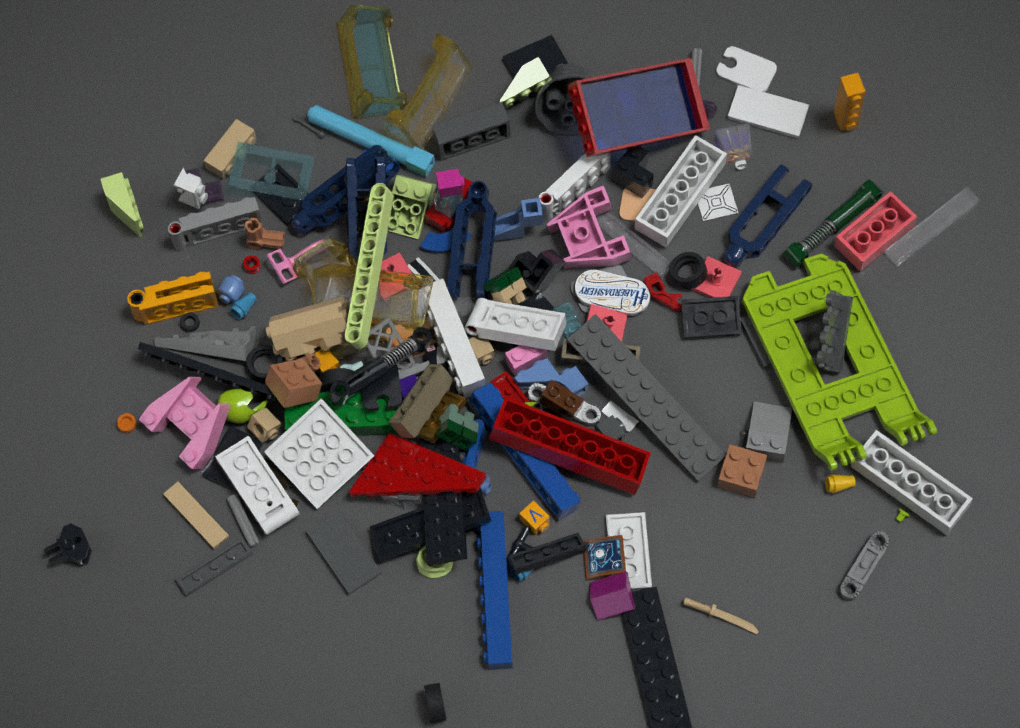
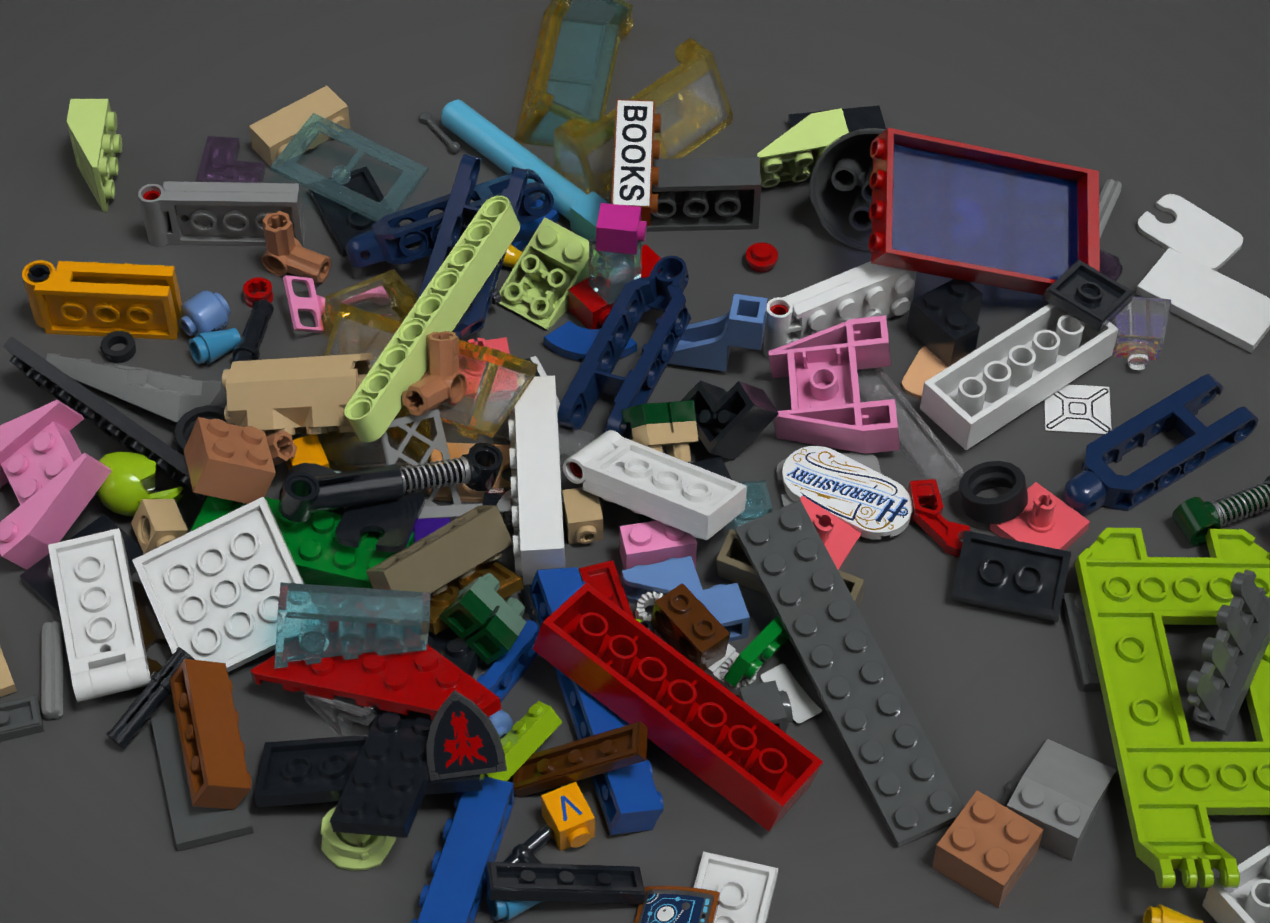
camera: 15 degrees right, 15 degrees down
(191, 188) = (211, 144): white window -> none
(262, 305) = (254, 332): none -> black pin
(309, 499) = (147, 701): none -> black pin
(343, 532) = (210, 734): none -> dark orange brick
(385, 300) = (442, 378): none -> nougat piece
(393, 454) = (348, 622): none -> clear light blue wedge
(437, 131) = (635, 154): none -> brick
(476, 502) = (463, 741): none -> shield
(498, 487) = (526, 738): none -> lime piece
(519, 157) = (761, 257): none -> red plate
(532, 489) = (582, 759): none -> reddish brown tile
(599, 399) = (762, 647): none -> green hinge
(706, 137) = (1088, 295): none -> black tile

